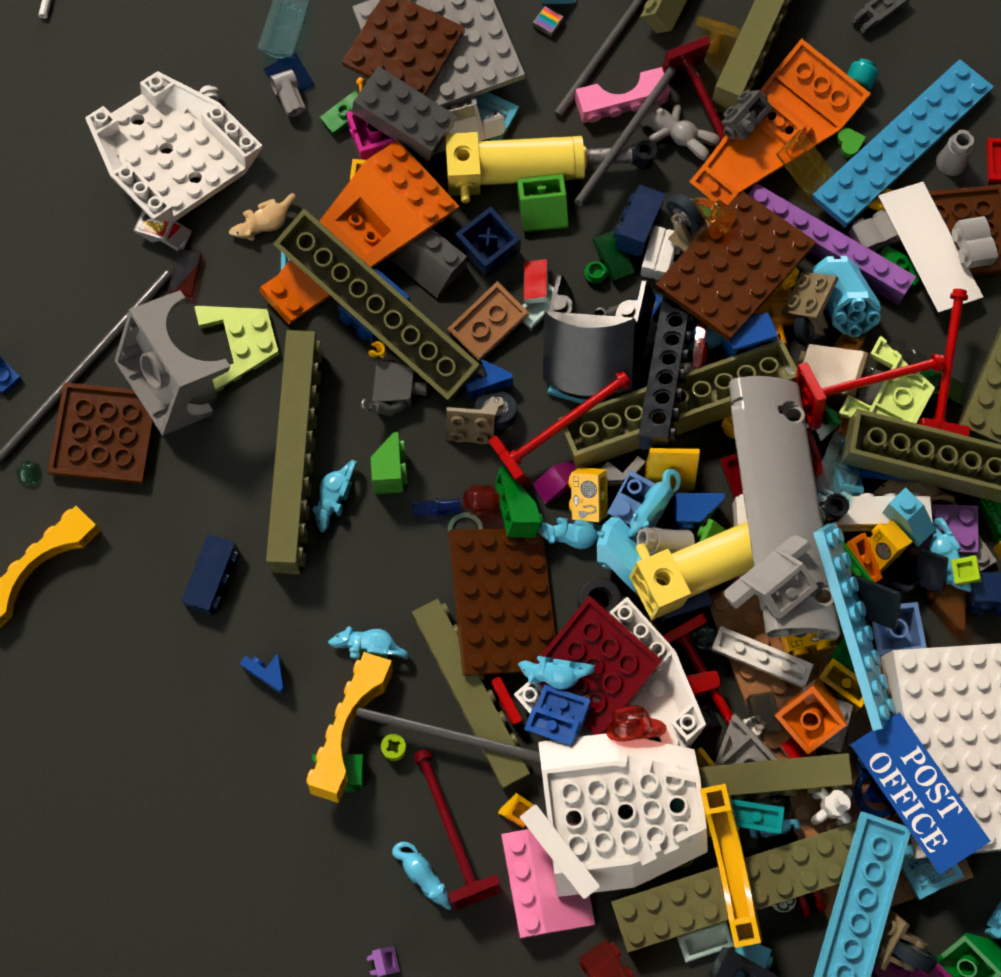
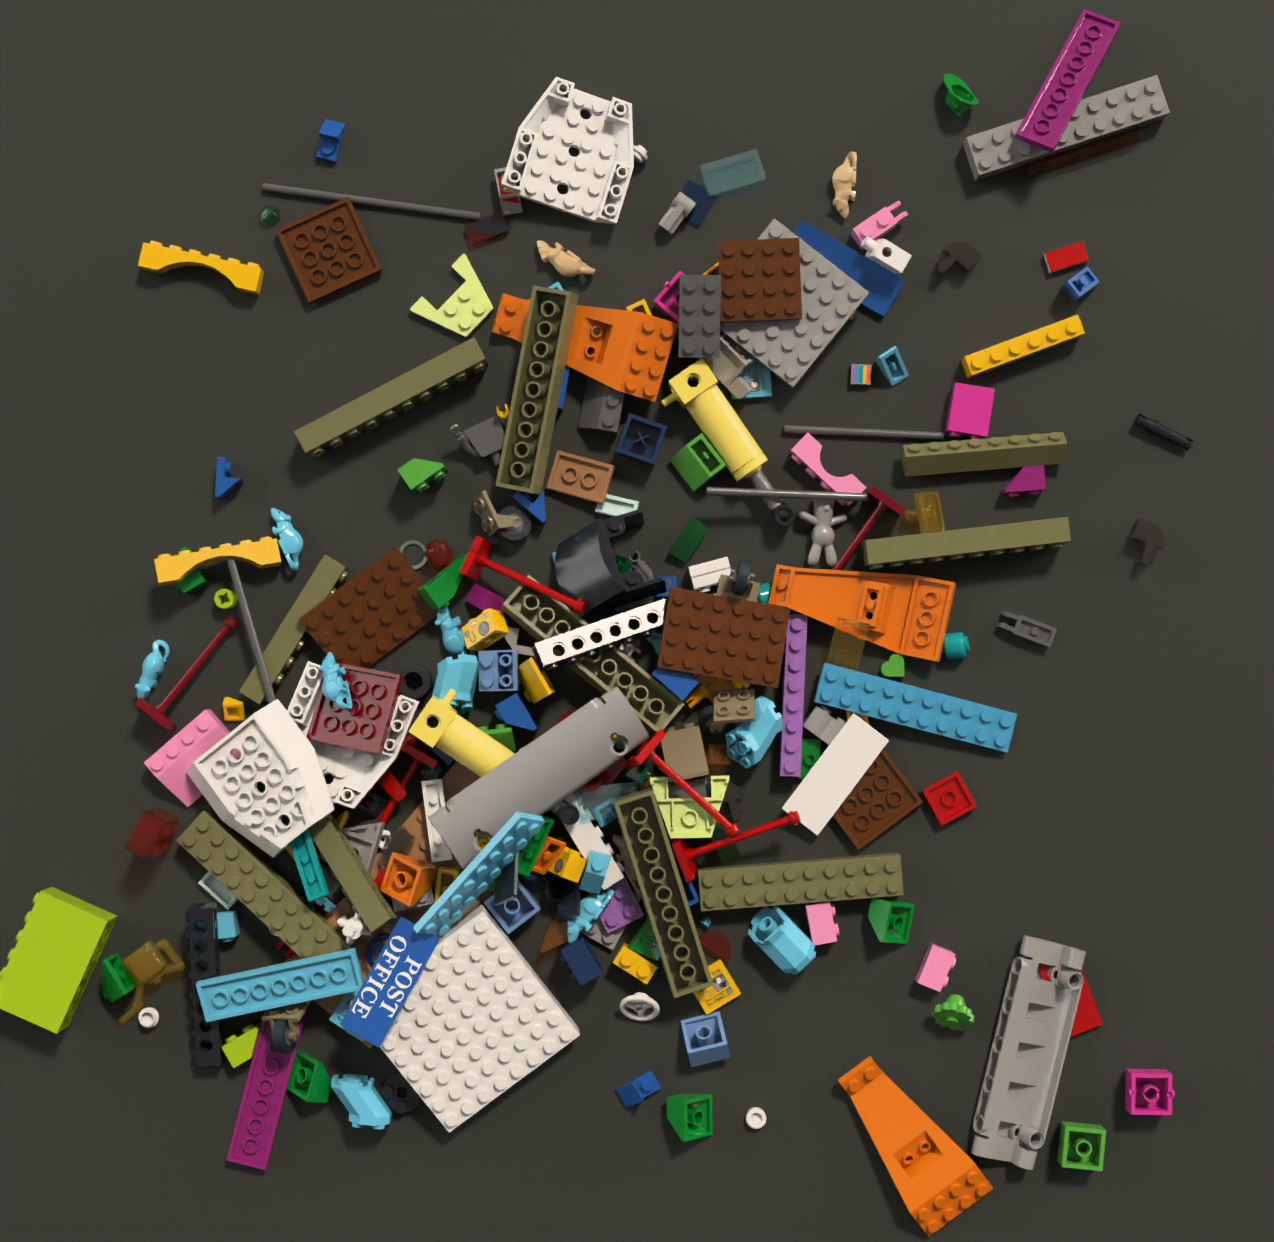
camera: 60 degrees right, 15 degrees up
(159, 370) = (377, 279): light grey piece -> none
(210, 574) = (270, 395): dark blue brick -> none
(333, 489) = (383, 442): medium azure animal -> none
(336, 117) = (686, 264): green plate -> none
(385, 961) = (79, 680): medium lavender tile -> none
(436, 507) = (415, 524): clear blue axle -> none
(506, 702) = (302, 658): red tile -> none
(536, 281) = (632, 494): tile -> none
(558, 715) = (303, 702): blue slope -> none
(559, 851) = (208, 757): white sticker -> none
(595, 272) = (668, 533): green plate -> none
(634, 723) = (325, 760): clear red piece -> none
(638, 220) = (725, 543): dark blue brick -> none
(655, 500) = (500, 682): medium azure animal -> none
(662, 539) = (475, 706): light grey plant -> none
(700, 347) = (644, 648): clear red tile -> none
(716, 213) = (751, 601): clear orange plate -> none
(732, 865) = (245, 899): yellow arch -> none
(740, 121) = (855, 577): dark grey brick -> none
(777, 579) = (467, 803): light grey plate -> none
(954, 156) = (919, 750): light grey plant -> none
(966, 570) = (577, 932): lime plate -> none
(975, 242) = (856, 806): light grey brick -> none

